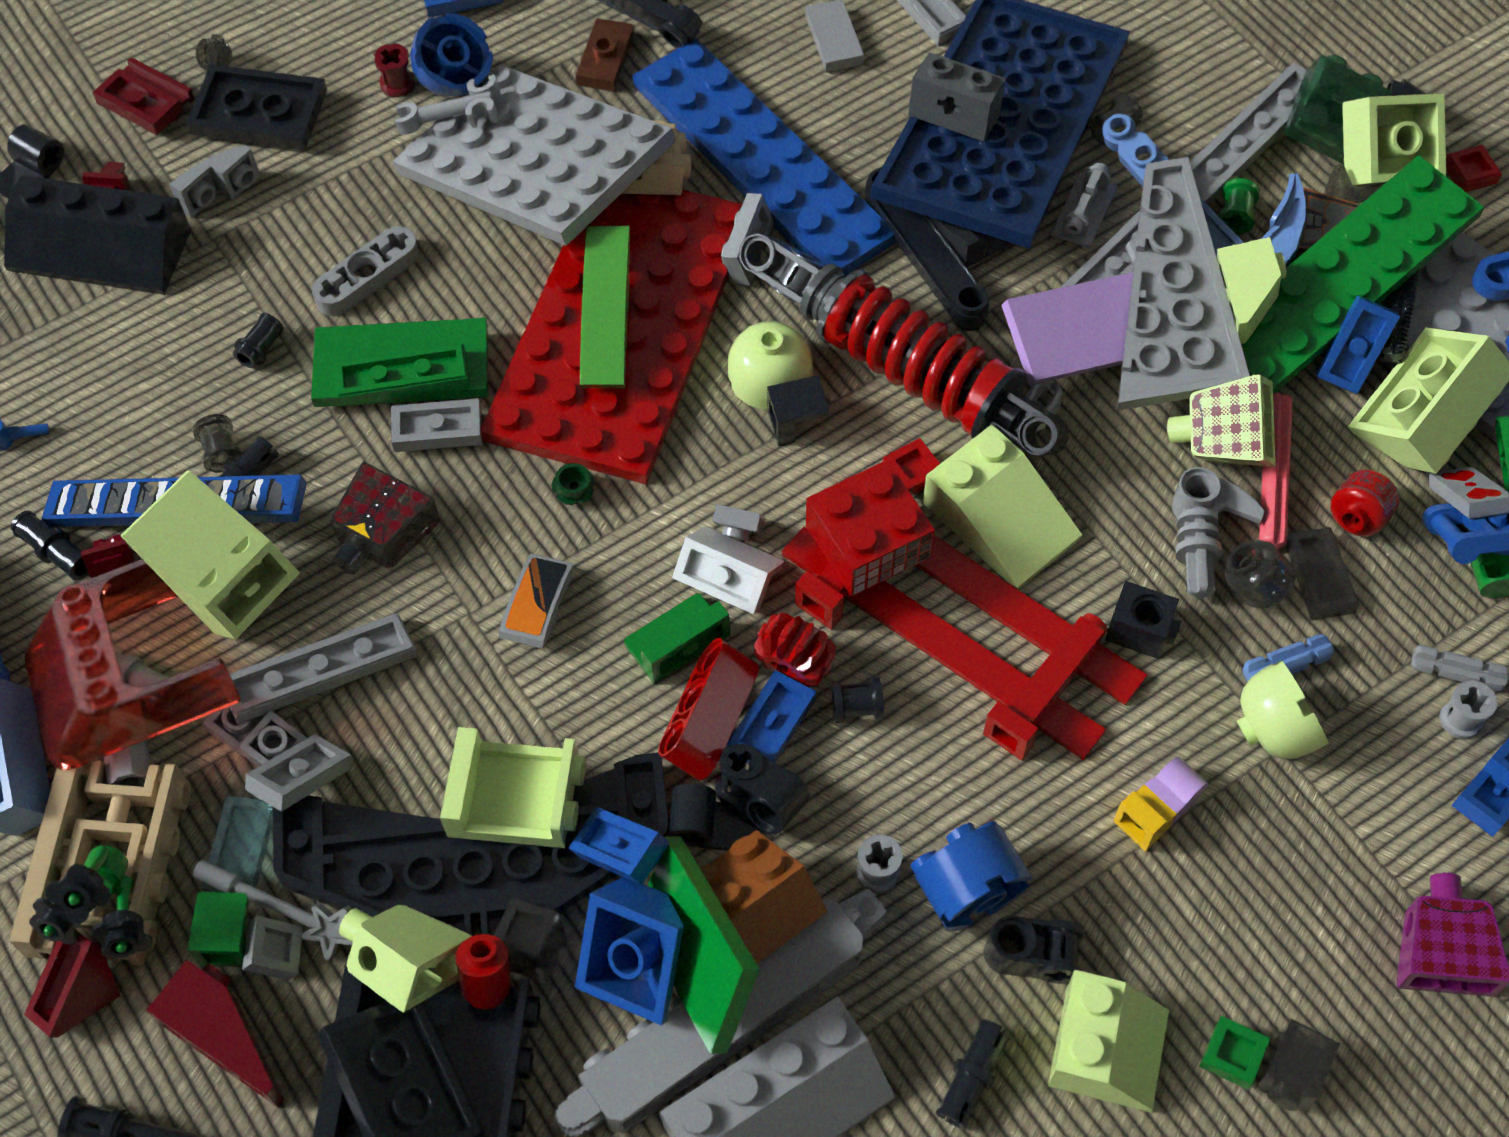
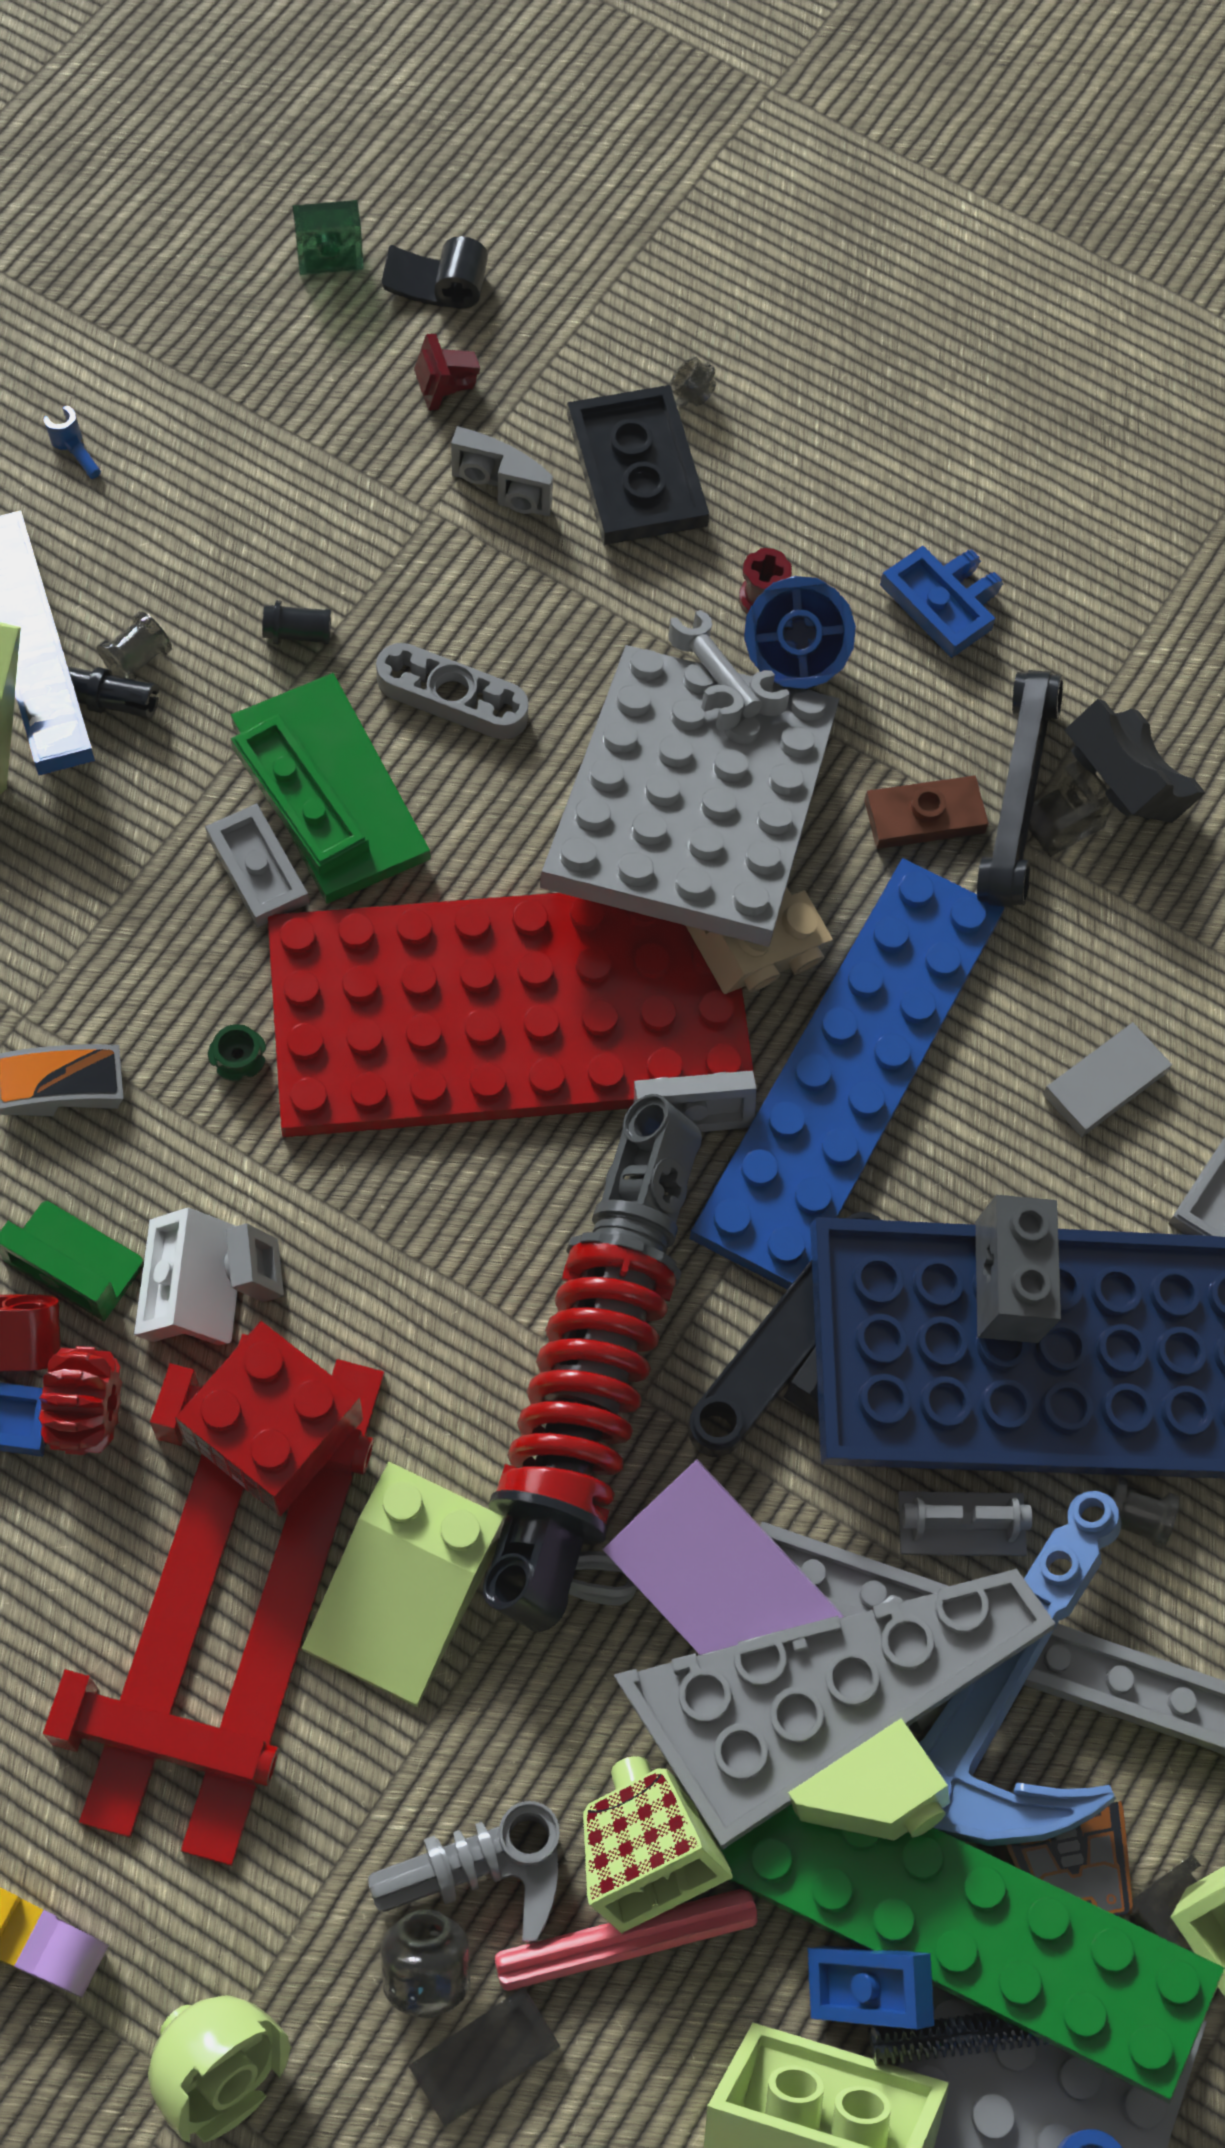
camera: 60 degrees right, 5 degrees up
(94, 234) = (364, 390): black slope -> none
(143, 96) = (594, 341): dark red plate -> none
(380, 519) = (96, 861): clear smoke torso -> none
(605, 307) = (486, 972): bright green slope -> none
(765, 357) = (512, 1211): yellowish green cylinder -> none
(794, 403) = (449, 1263): black panel -> none
(857, 699) = (50, 1505): black bush -> none
(913, 464) = (425, 1444): red plate -> none
(1143, 602) = (292, 1800): black brick -> none
(1239, 199) = (1066, 1738): green bush -> none
(1295, 656) = (322, 2051): medium blue axle -> none
(1367, 500) = (613, 2083): red head -> none

